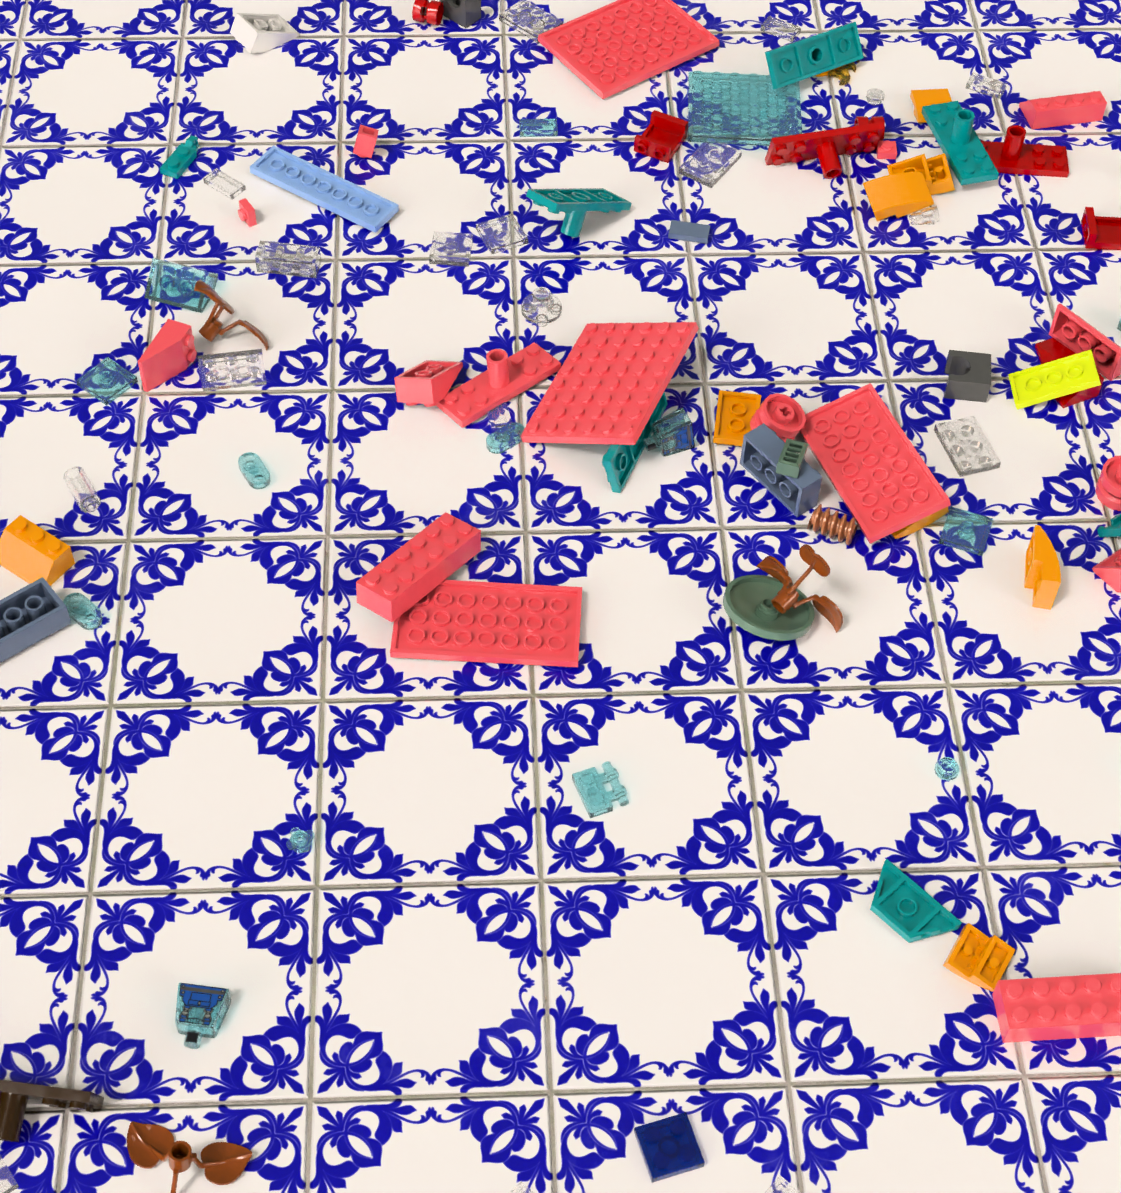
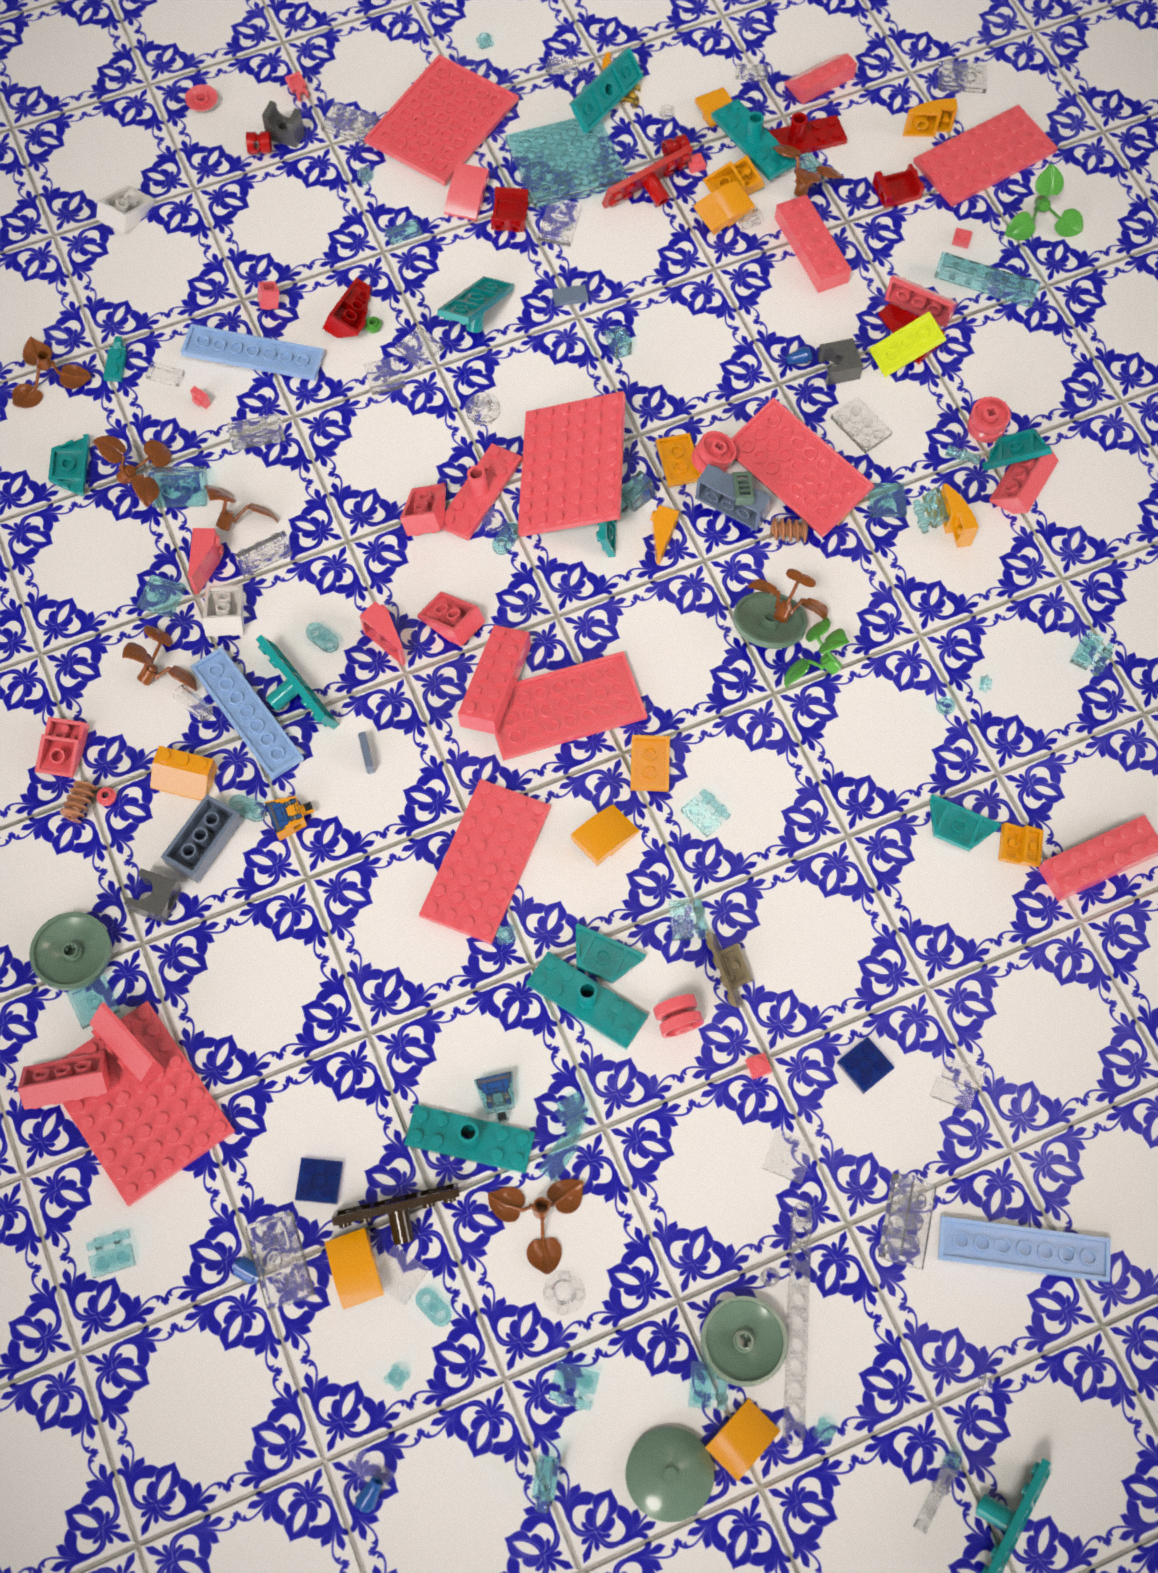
camera: 20 degrees left, 15 degrees up
(53, 444) = (149, 671): none -> dark orange plant
(82, 234) = (69, 465): none -> teal wing
(105, 130) = (40, 354): none -> dark orange plant
(121, 632) = (288, 815): none -> torso
(133, 519) = (247, 713): none -> light blue plate
(143, 272) = (145, 487): none -> dark orange plant
(144, 1053) = (491, 1145): none -> teal plate
(162, 413) = (223, 610): none -> white slope
(196, 505) = (293, 685): none -> teal plate
(237, 1115) = (558, 1158): none -> clear light blue tile
(241, 597) = (366, 752): none -> sand blue tile
(279, 1069) = (574, 1114): none -> clear light blue slope
(316, 755) = (485, 861): none -> coral plate
(319, 479) = (380, 629): none -> coral slope
(361, 948) = (602, 1011): none -> teal plate
(404, 903) = (603, 955): none -> teal wing
(406, 496) = (452, 618): none -> coral slope
(442, 179) = (350, 312): none -> red wedge
(457, 998) = (678, 1015): none -> coral wheel
(462, 199) = (373, 324): none -> bright green plate
(467, 770) = (604, 834): none -> light orange slope
(514, 896) = (681, 921): none -> clear light blue plate
(519, 64) = (364, 174): none -> clear light blue plate
(533, 1098) = (758, 1066): none -> coral plate
(550, 970) = (732, 967): none -> dark tan bracket
(558, 714) = (650, 763): none -> light orange plate
(622, 108) = (466, 191): none -> coral slope
(688, 478) = (663, 526): none -> light orange slope
(722, 288) = (618, 341): none -> clear light blue slope
(820, 672) = (828, 661): none -> bright green plant
(923, 358) = (799, 356): none -> blue cone
(985, 256) = (812, 243): none -> coral brick
(997, 183) = (805, 178): none -> dark orange plant
(1006, 760) = (985, 683): none -> clear light blue plate
(1016, 186) = (809, 163): none -> clear light blue plate
(1017, 553) = (935, 510): none -> clear light blue plate
(1077, 511) = (962, 454): none -> clear light blue axle

